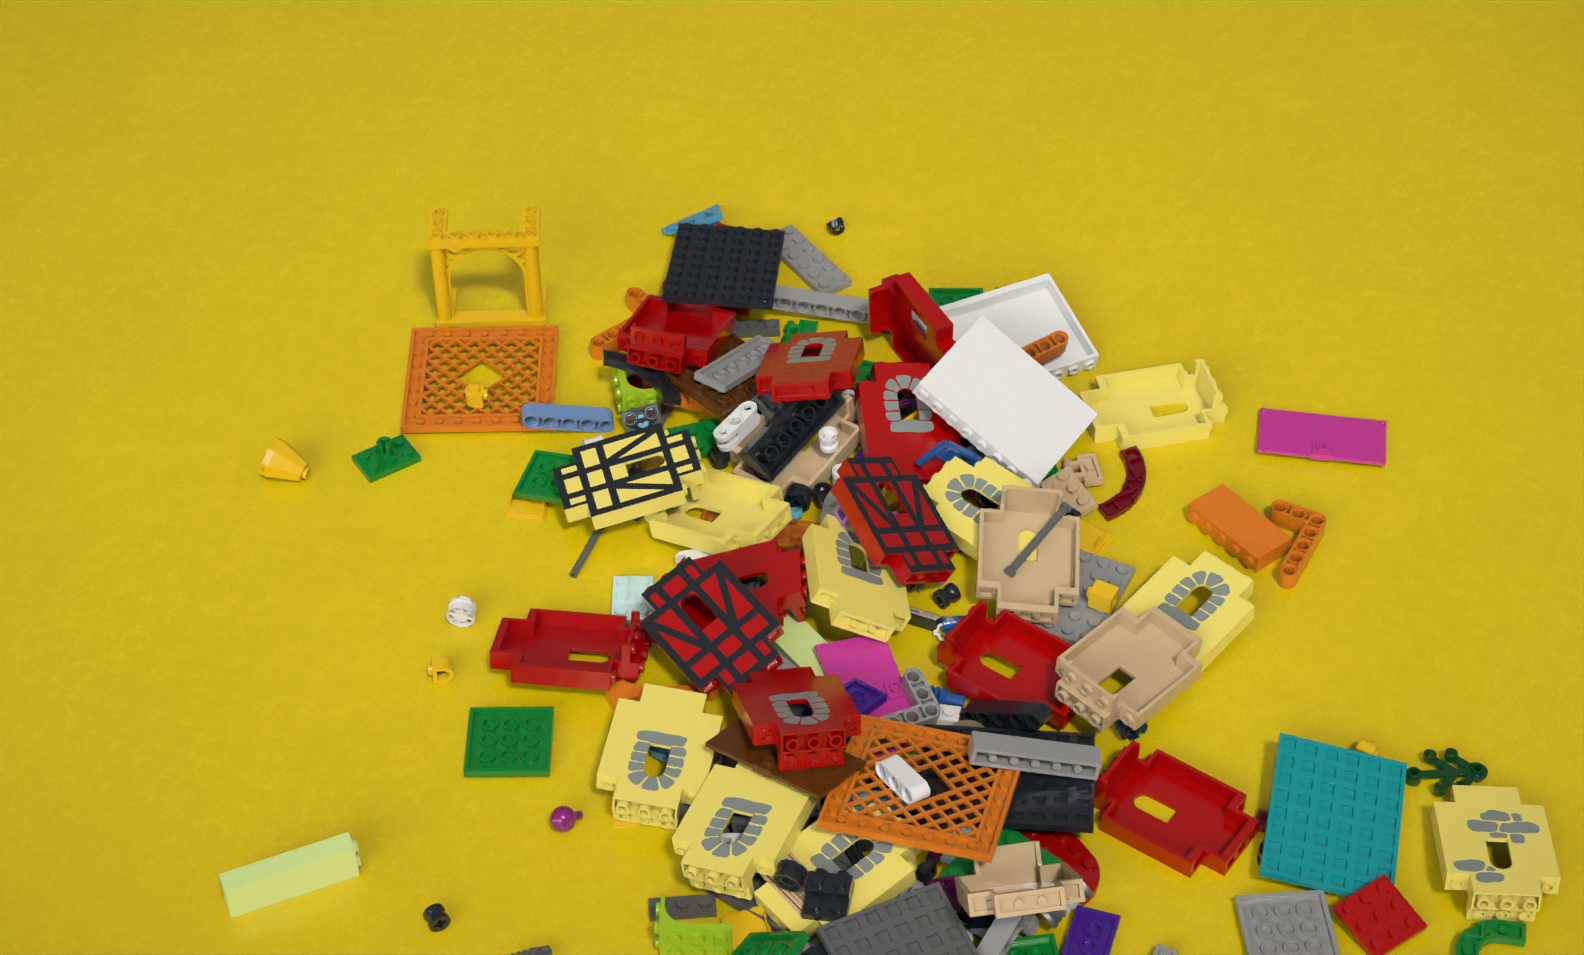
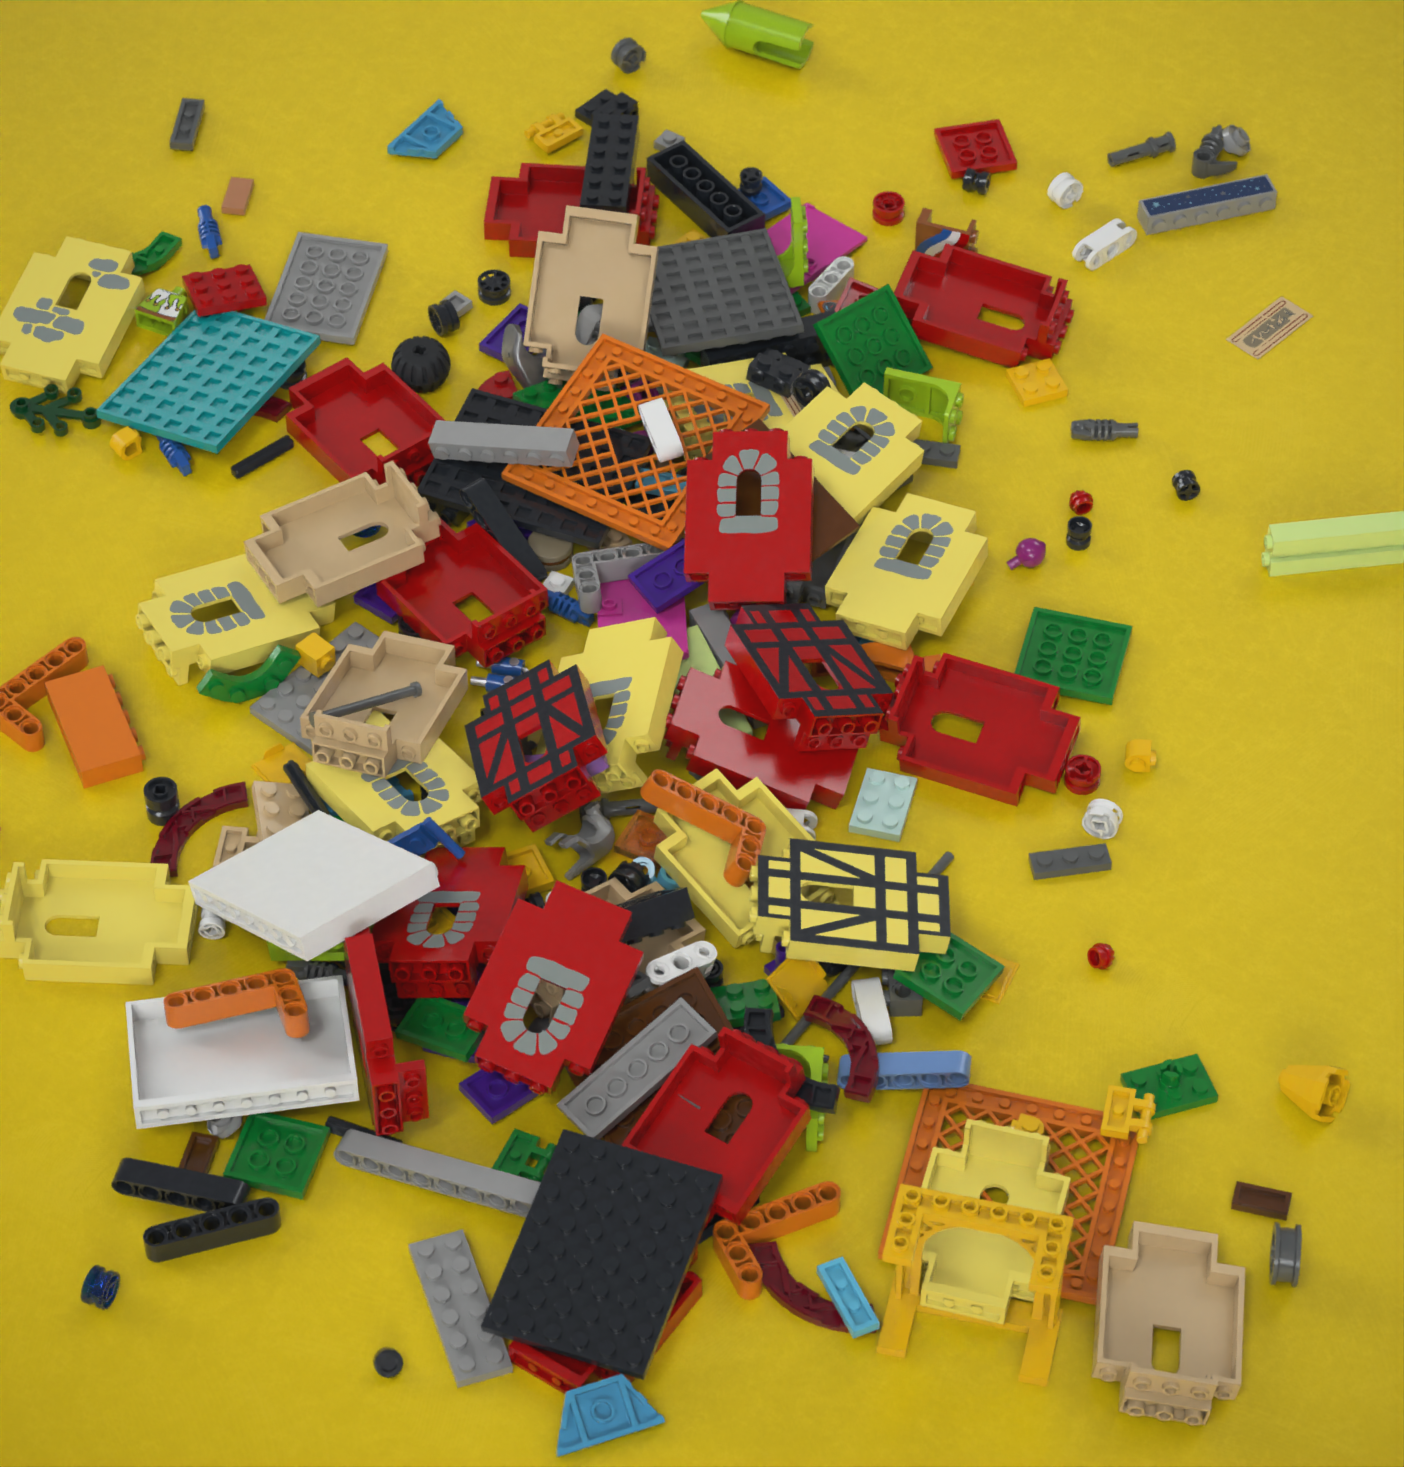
camera: 165 degrees left, 5 degrees up
(296, 361) = (1285, 1254): none -> dark grey wheel
(316, 407) = (1261, 1200): none -> reddish brown tile
(371, 344) = (1174, 1284): none -> tan panel
(416, 419) = (1118, 1114): none -> yellow plate
(446, 524) = (1101, 956): none -> red plate
(480, 647) = (1082, 774): none -> red wheel
(484, 587) = (1069, 861): none -> dark grey plate
(492, 321) = (976, 1269): none -> light yellow panel
(524, 848) = (1079, 533): none -> black wheel
(528, 882) = (1081, 502): none -> red plate
(570, 296) = (847, 1297): none -> medium azure plate
(592, 301) = (793, 1294): none -> dark red tile
(596, 414) = (856, 1039): none -> dark red tile
(730, 512) = (712, 815): none -> orange beam
(973, 263) = (200, 1233): none -> black beam
(998, 277) = (178, 1186): none -> black beam
(1021, 221) = (100, 1287): none -> wheel
(1130, 582) = (253, 685): none -> green plate
(1155, 483) = (161, 800): none -> black wheel
(1159, 875) = (421, 363): none -> black wheel
(1165, 932) = (443, 317): none -> black wheel
(1250, 770) = (262, 456): none -> black axle
(1418, 885) = (163, 311): none -> lime torso

